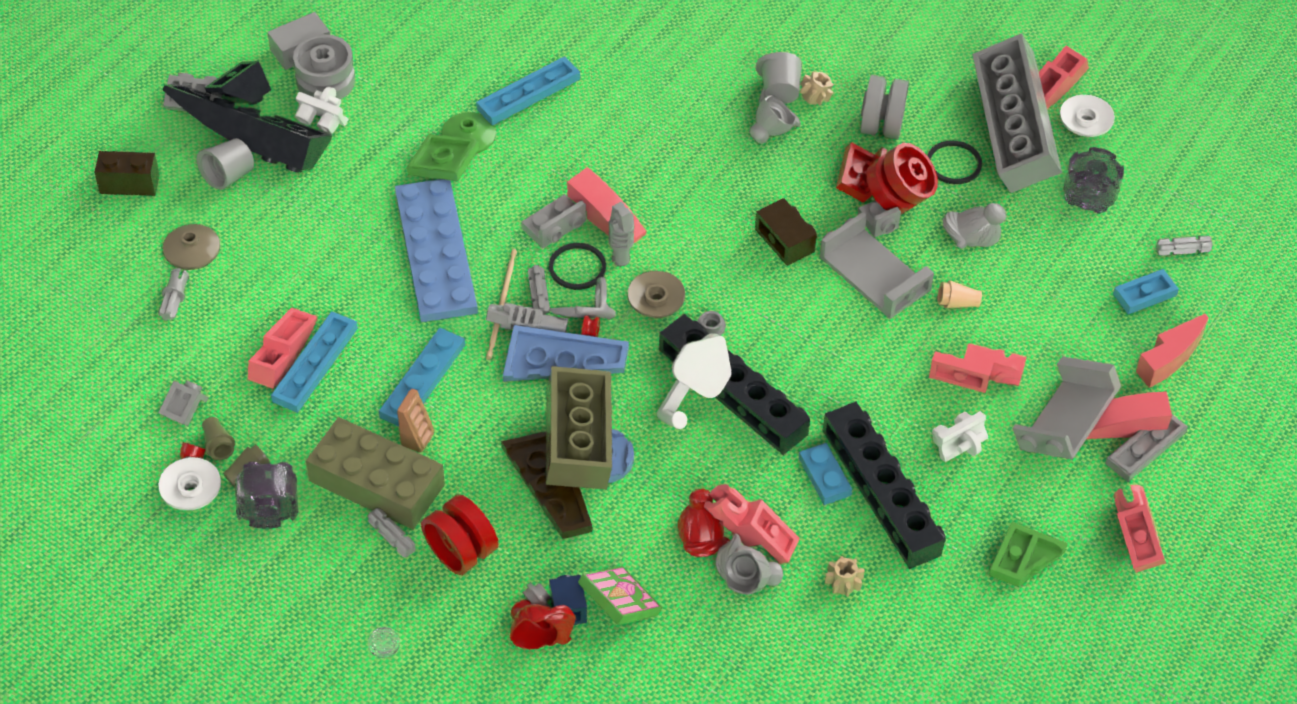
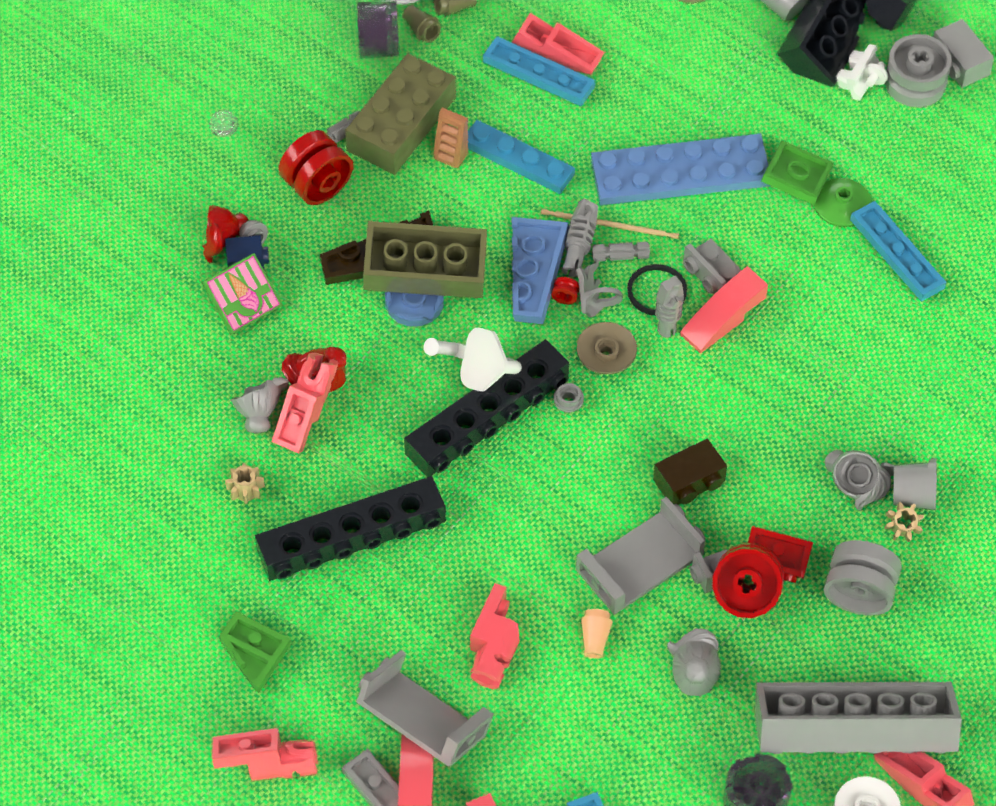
camera: 95 degrees right, 5 degrees up
(825, 473) = (373, 481): dark azure plate -> none
(962, 437) = (400, 609): white hips -> none
(963, 145) = (805, 635): black piece -> none

